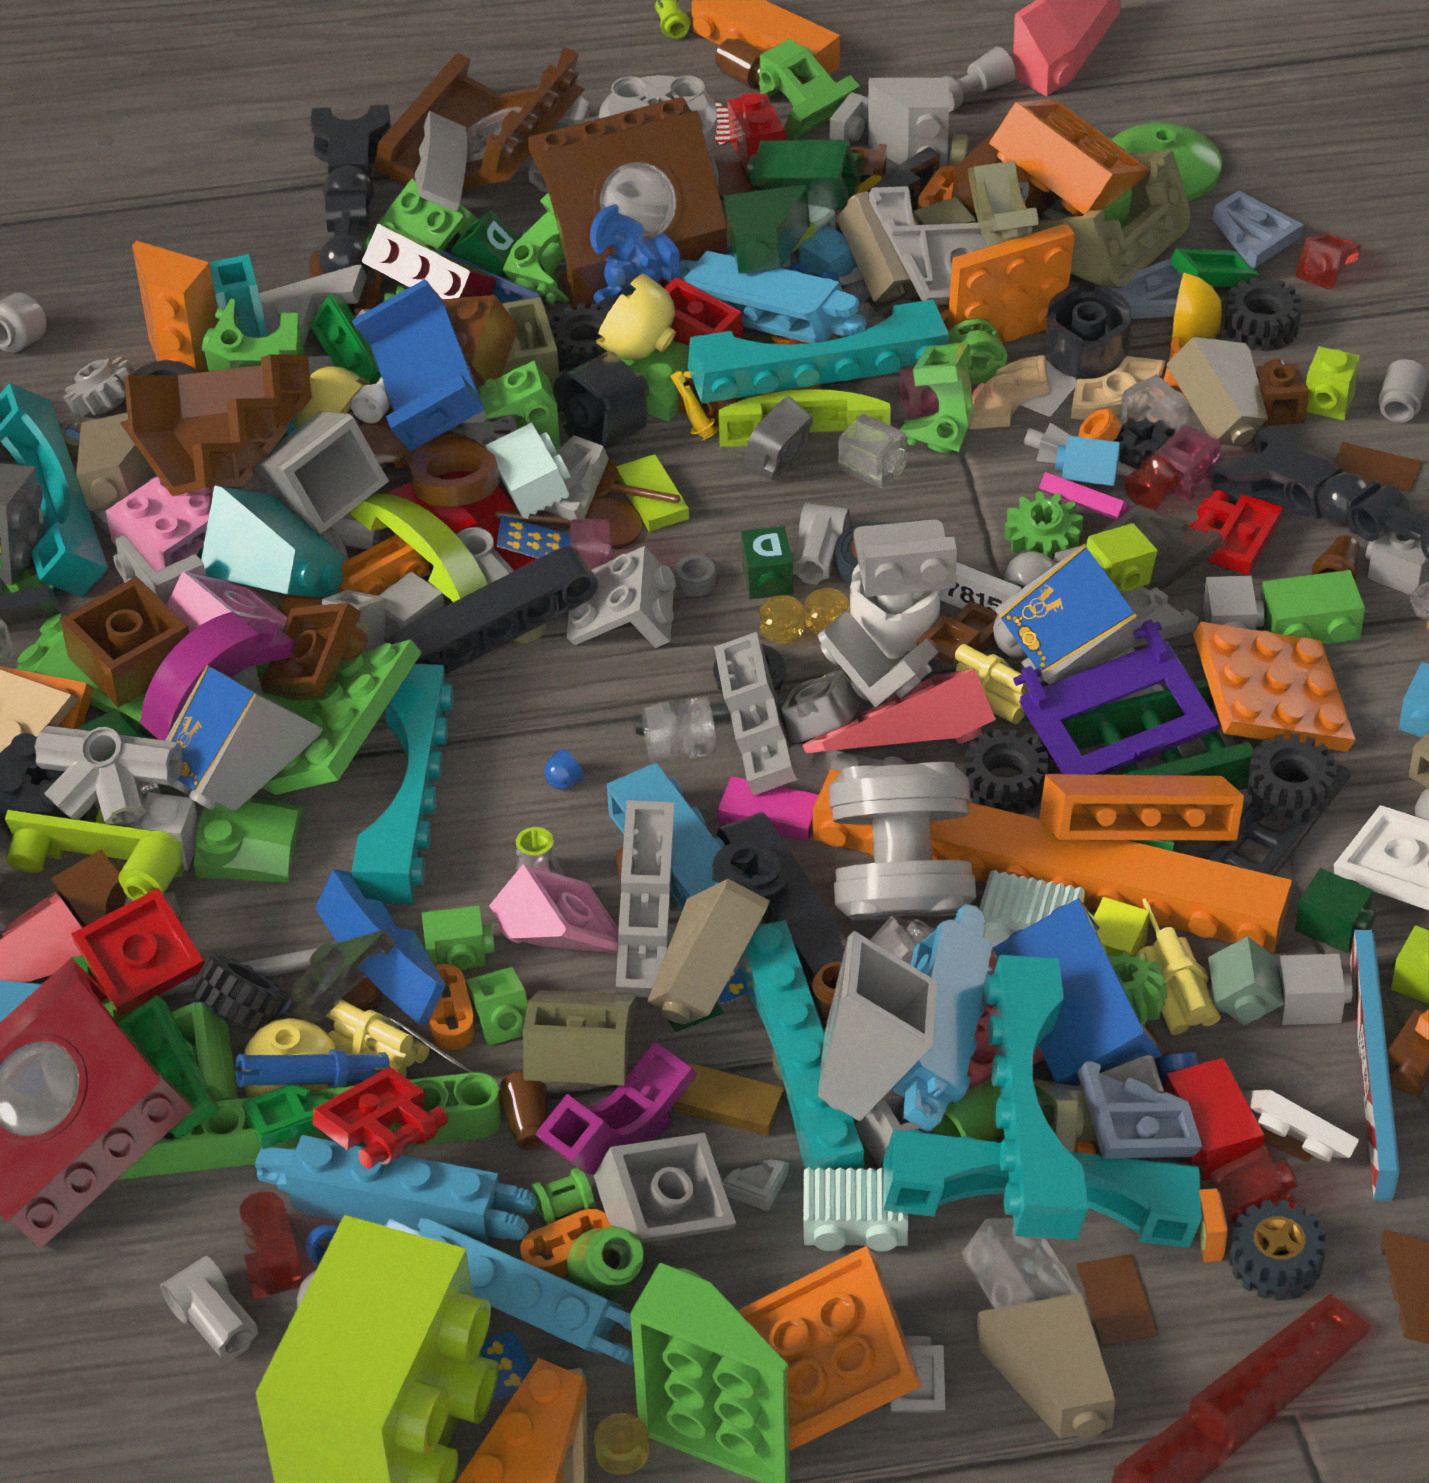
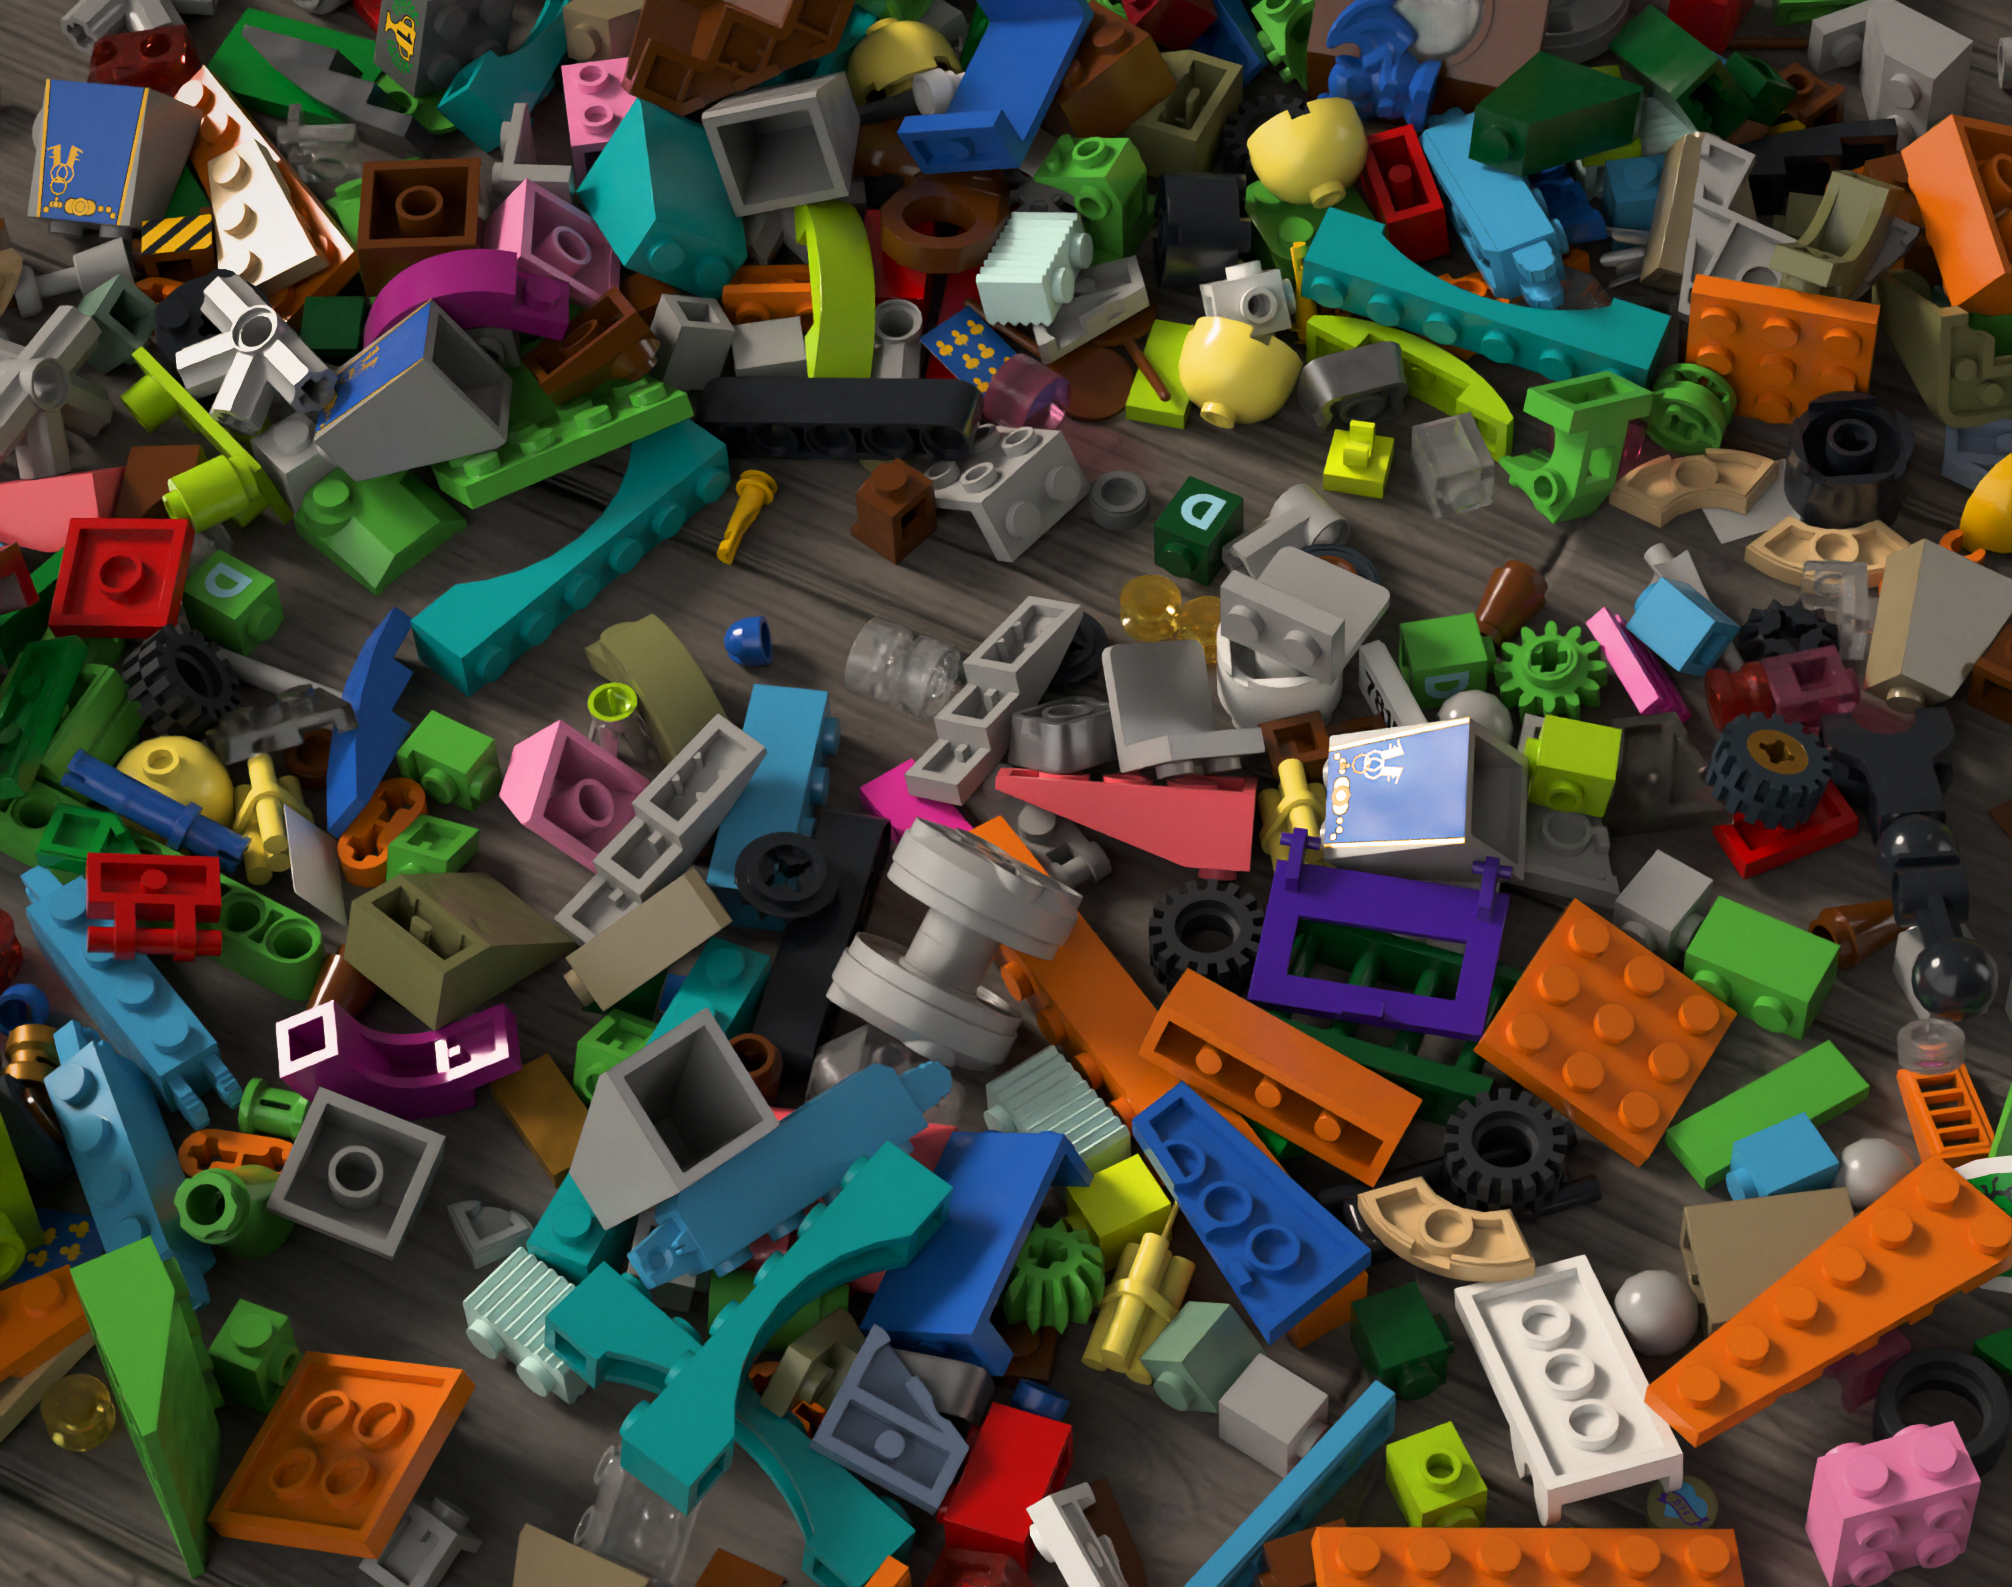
camera: 40 degrees right, 5 degrees up
(215, 927) = (232, 603): none -> bright green brick
(472, 688) = (753, 490): none -> yellow piece
(576, 649) = (885, 498): none -> reddish brown brick
(580, 826) = (667, 680): none -> olive arch
(668, 427) = (1271, 297): none -> white brick
(702, 464) = (1235, 375): none -> light yellow cylinder
(739, 1040) = (607, 1045): none -> bright green bracket
(811, 479) = (1358, 461): none -> neon yellow tile
(978, 504) = (1510, 601): none -> reddish brown cone
(983, 546) = (1444, 658): none -> bright green brick
(1101, 425) = (1746, 592): orange tile -> none
(1210, 885) = (1254, 1219): none -> blue wing
(1225, 502) = (1768, 770): none -> black wheel
(1303, 839) = (1445, 1236): none -> tan tile
(1386, 683) = (1813, 1083): none -> bright green tile

